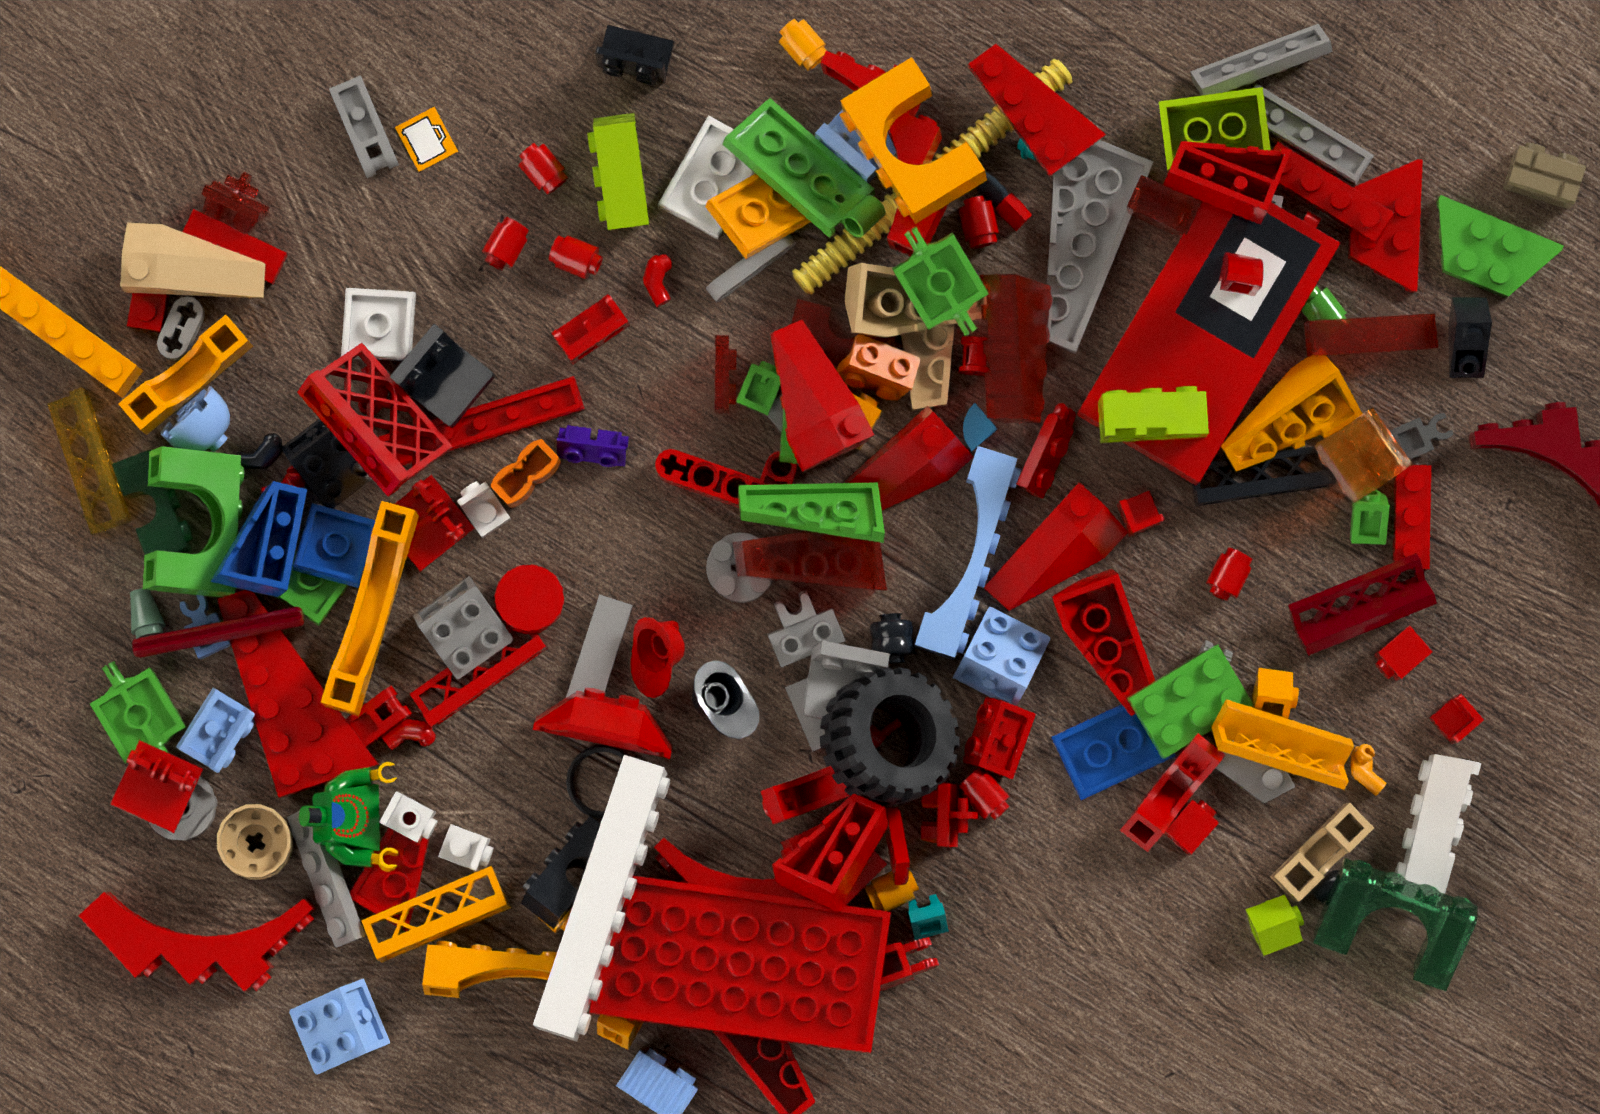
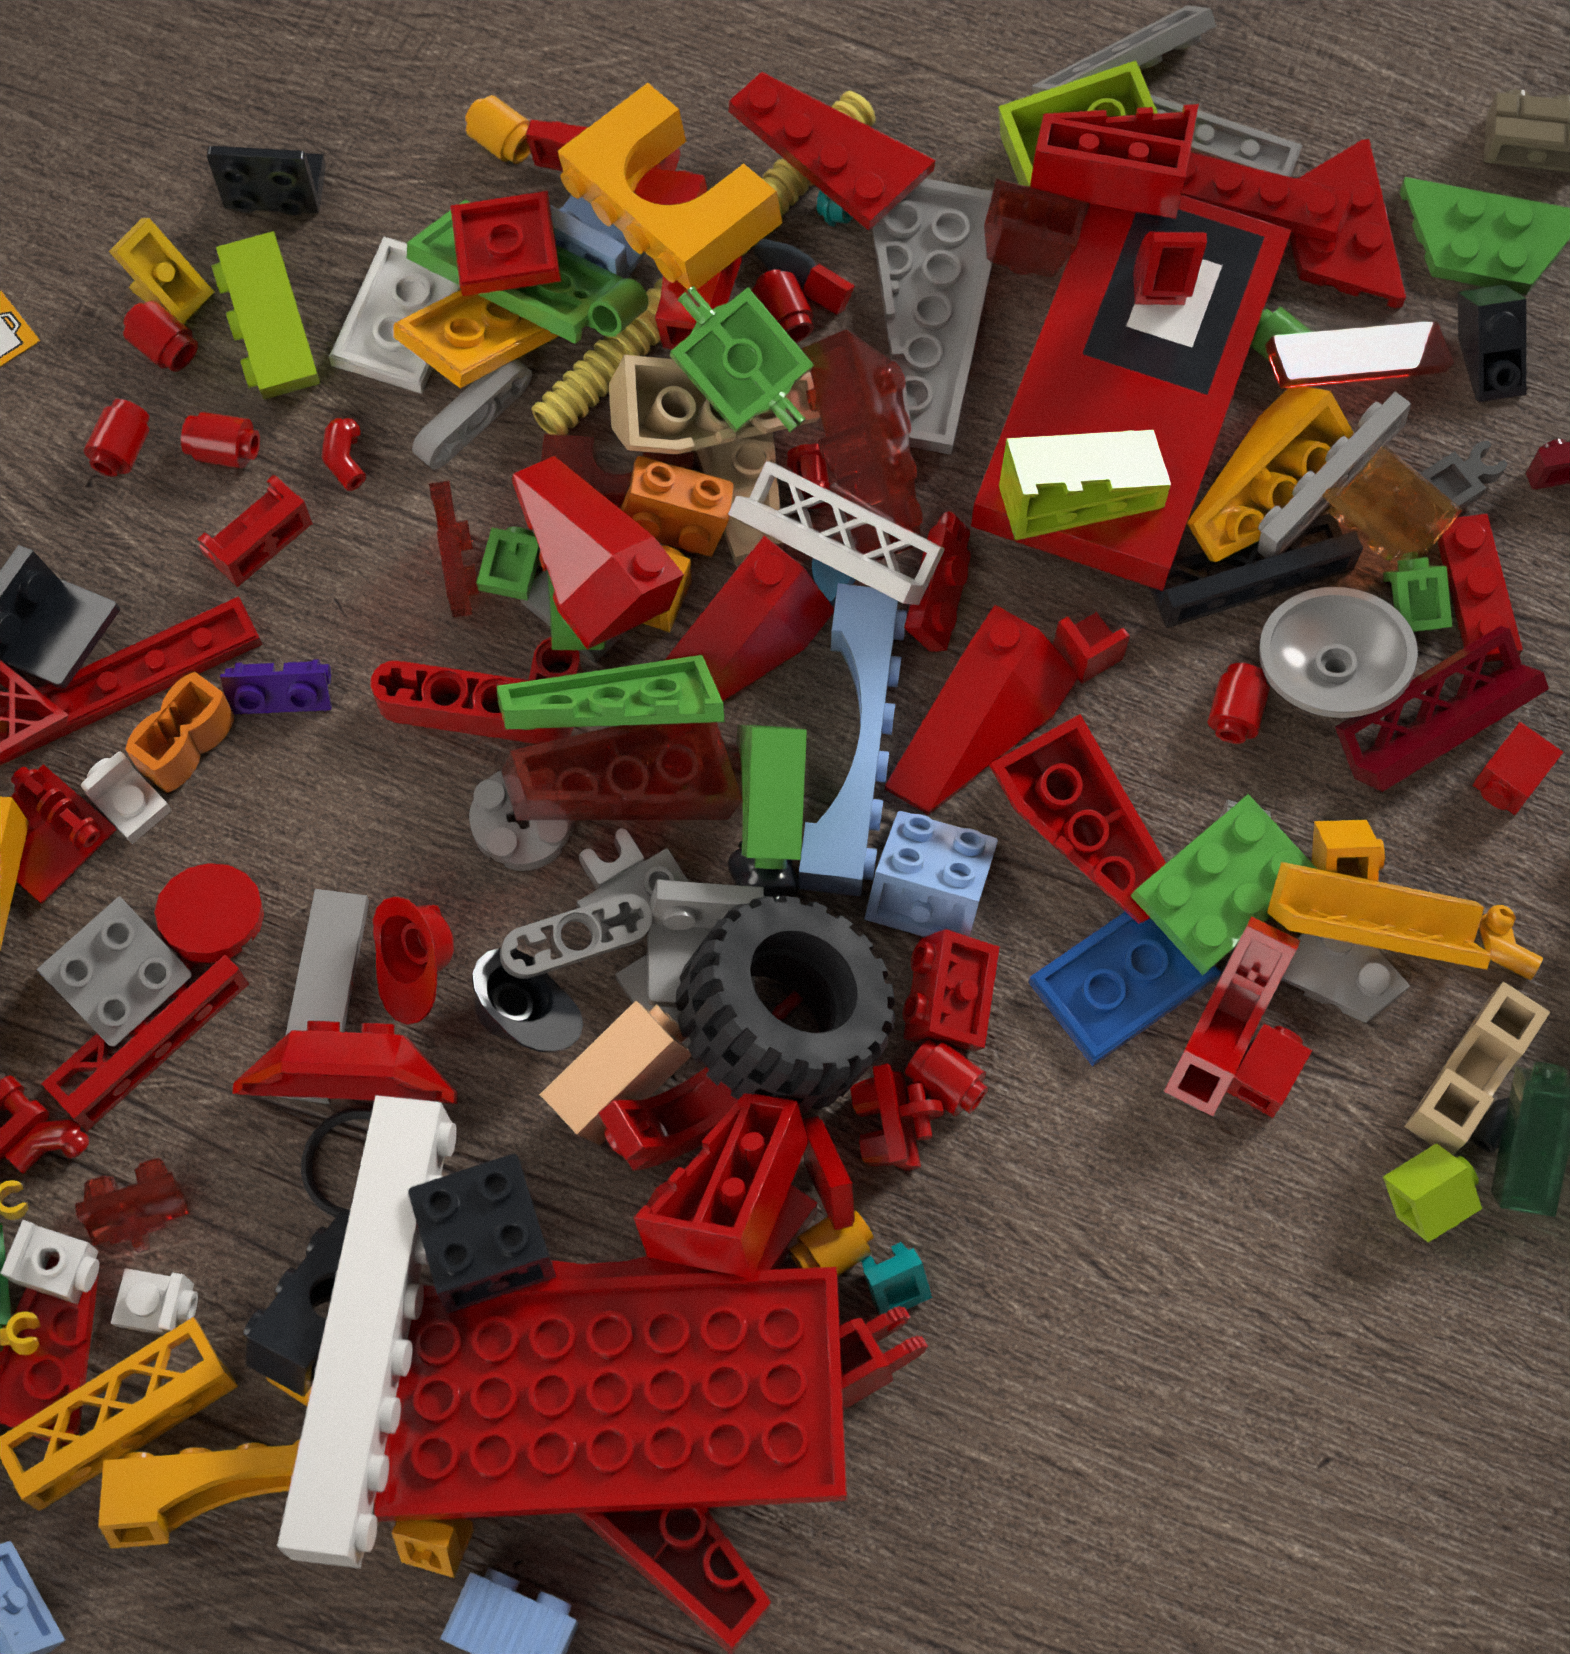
camera: 10 degrees left, 15 degrees down
(461, 790) = (132, 1210): none -> clear red hips
(550, 121) = (160, 270): none -> yellow slope
(677, 853) = (480, 1233): none -> black bracket
(776, 760) = (621, 1064): none -> light nougat brick
(787, 648) = (609, 911): none -> light grey beam
(793, 155) = (505, 243): none -> red tile
(907, 588) = (772, 793): none -> bright green arch
(974, 423) = (830, 551): none -> white fence
(1305, 533) = (1344, 634): none -> light grey dish
(1339, 415) = (1343, 465): none -> light grey plate

